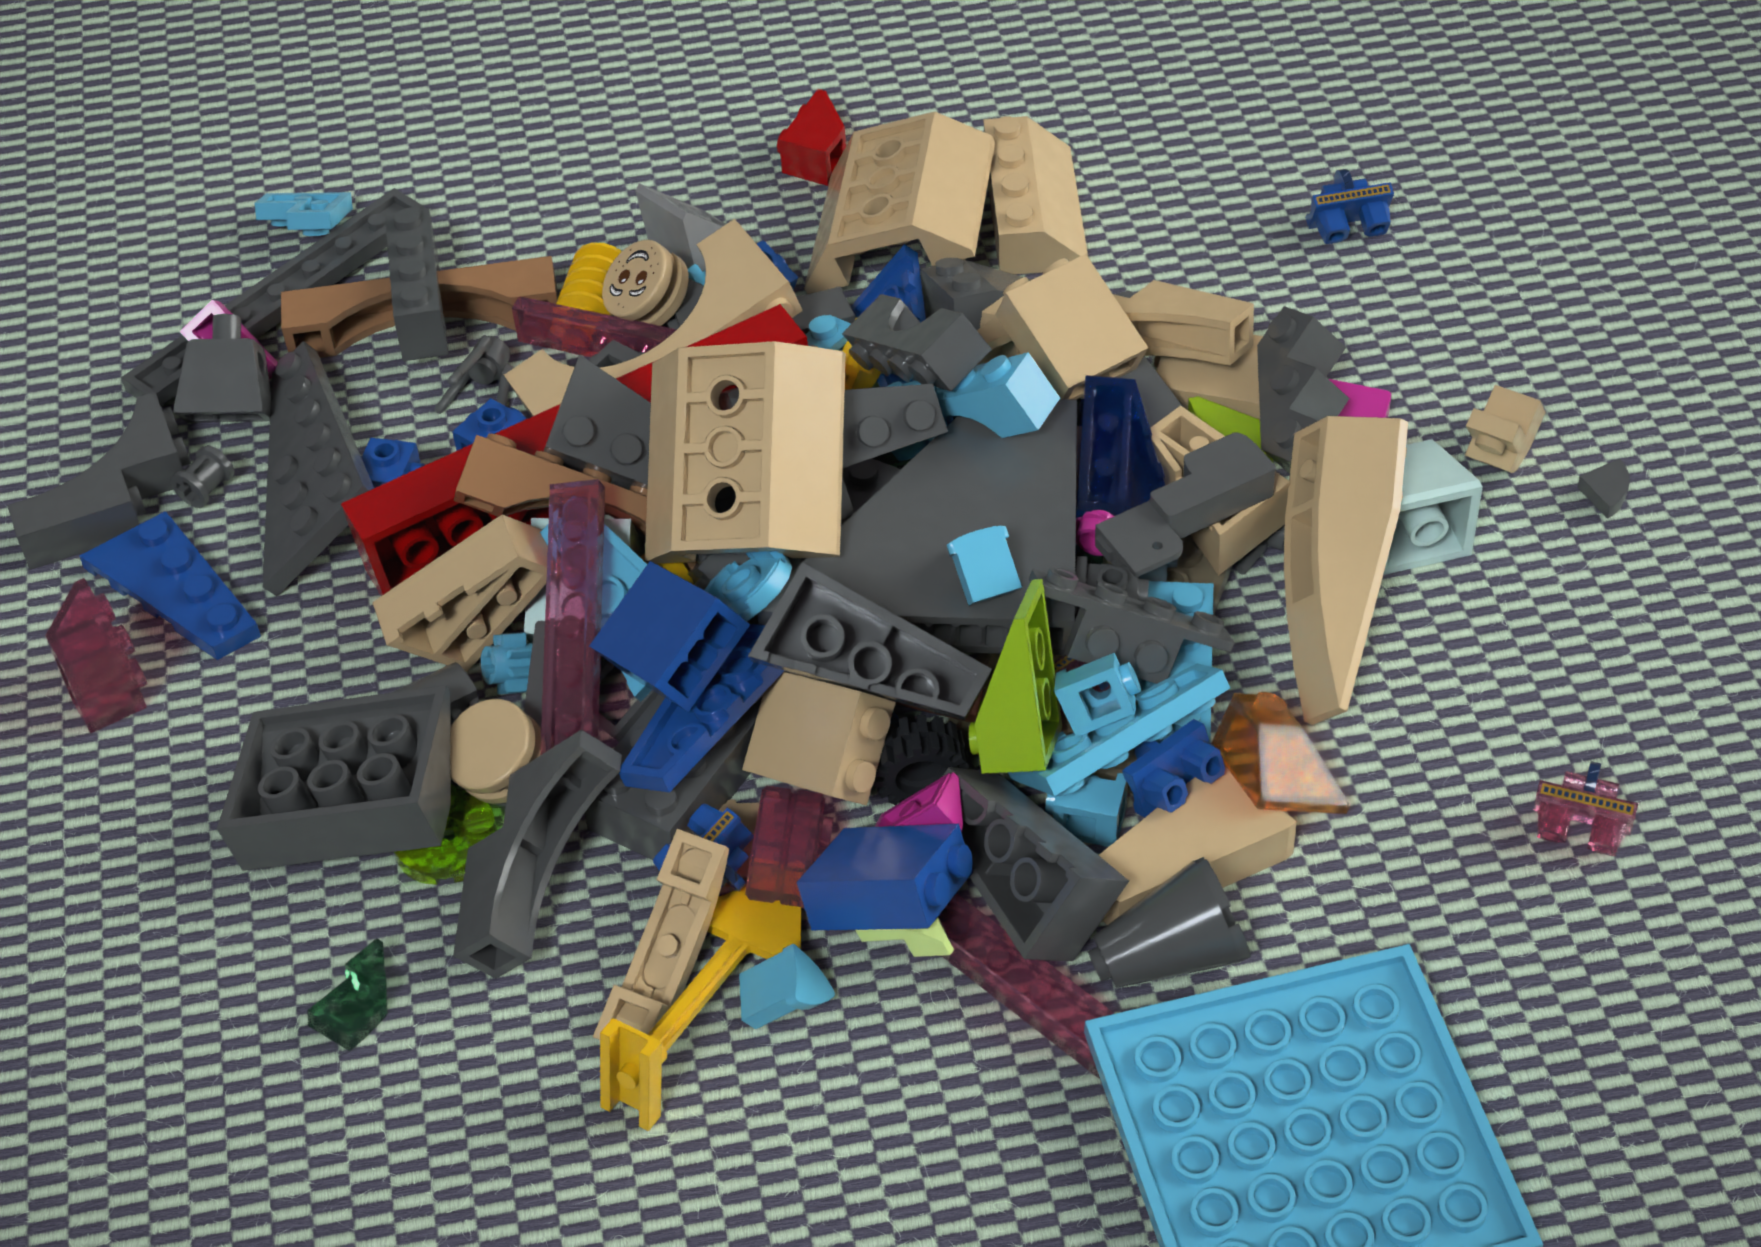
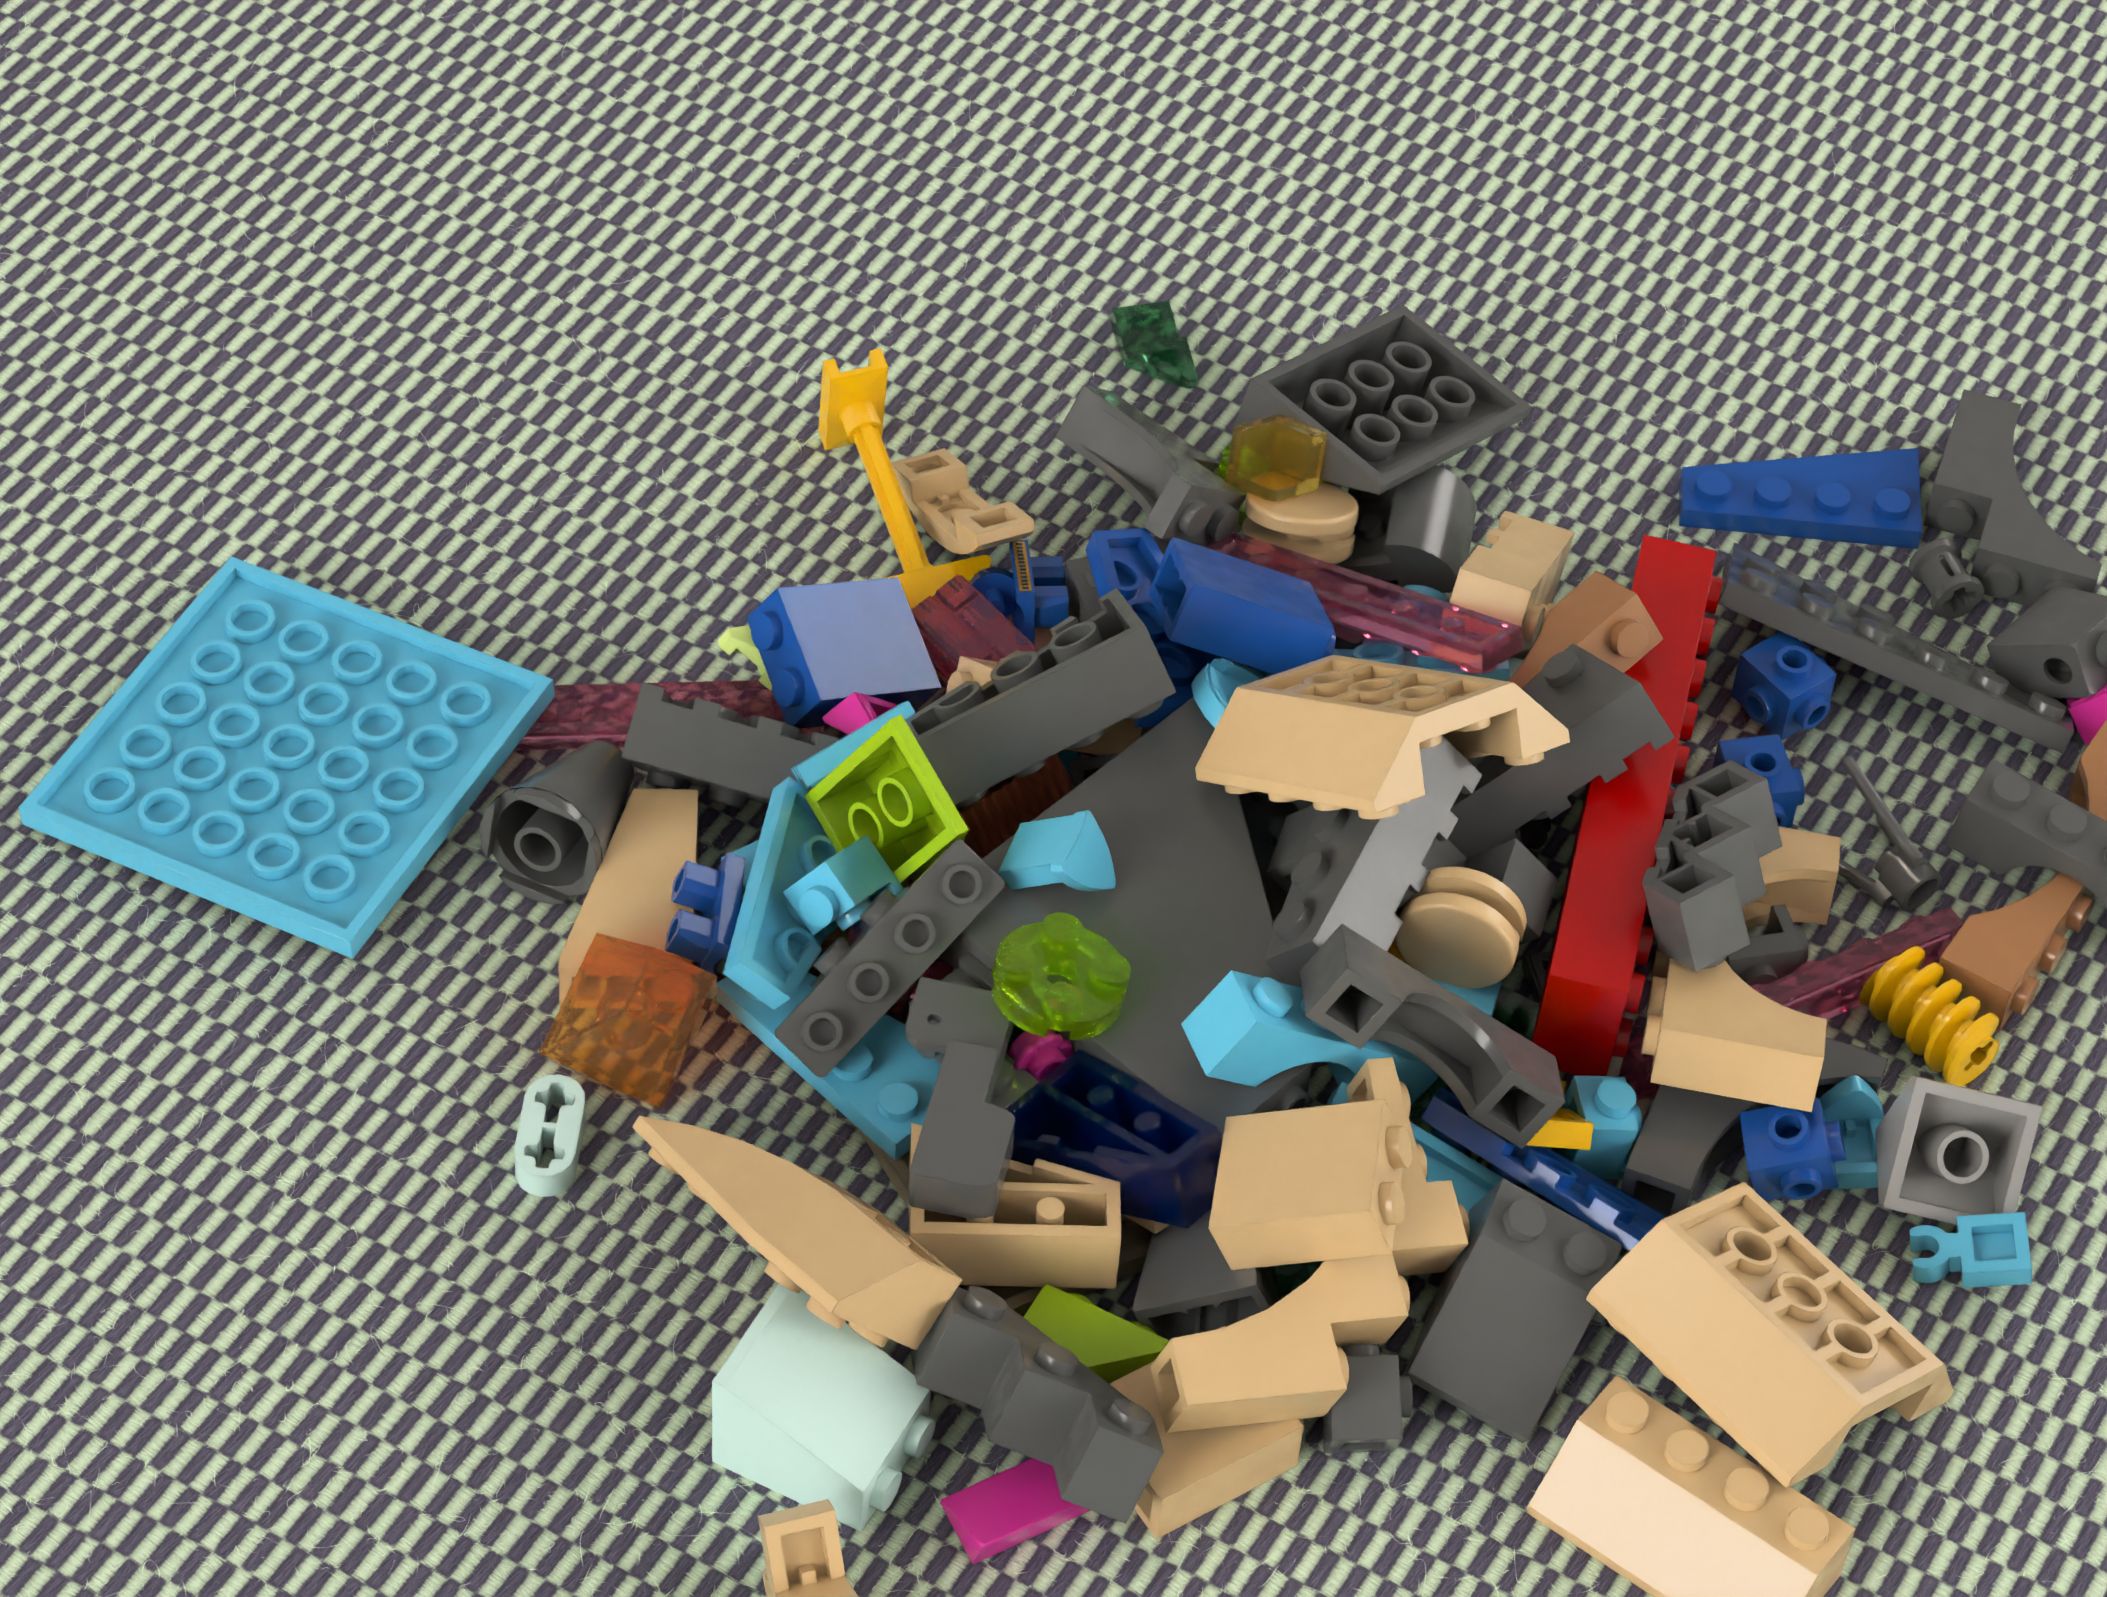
camera: 125 degrees right, 0 degrees up
(95, 659) = (1733, 358): clear pink slope -> none
(469, 766) = (1276, 458): none -> clear yellow panel
(643, 333) = (1710, 865): none -> dark grey brick
(645, 283) = (1863, 1016): tan head -> none
(733, 198) = (1985, 1250): none -> medium azure plate
(781, 986) = (836, 559): medium azure tile -> none
(813, 141) = (2021, 1403): red slope -> none
(976, 779) = (819, 765): none -> medium azure tile
(1084, 488) = (1067, 950): none -> clear neon green plate
(1381, 763) = (563, 1136): none -> light aqua beam
(1586, 802) = (317, 1216): clear pink hips -> none

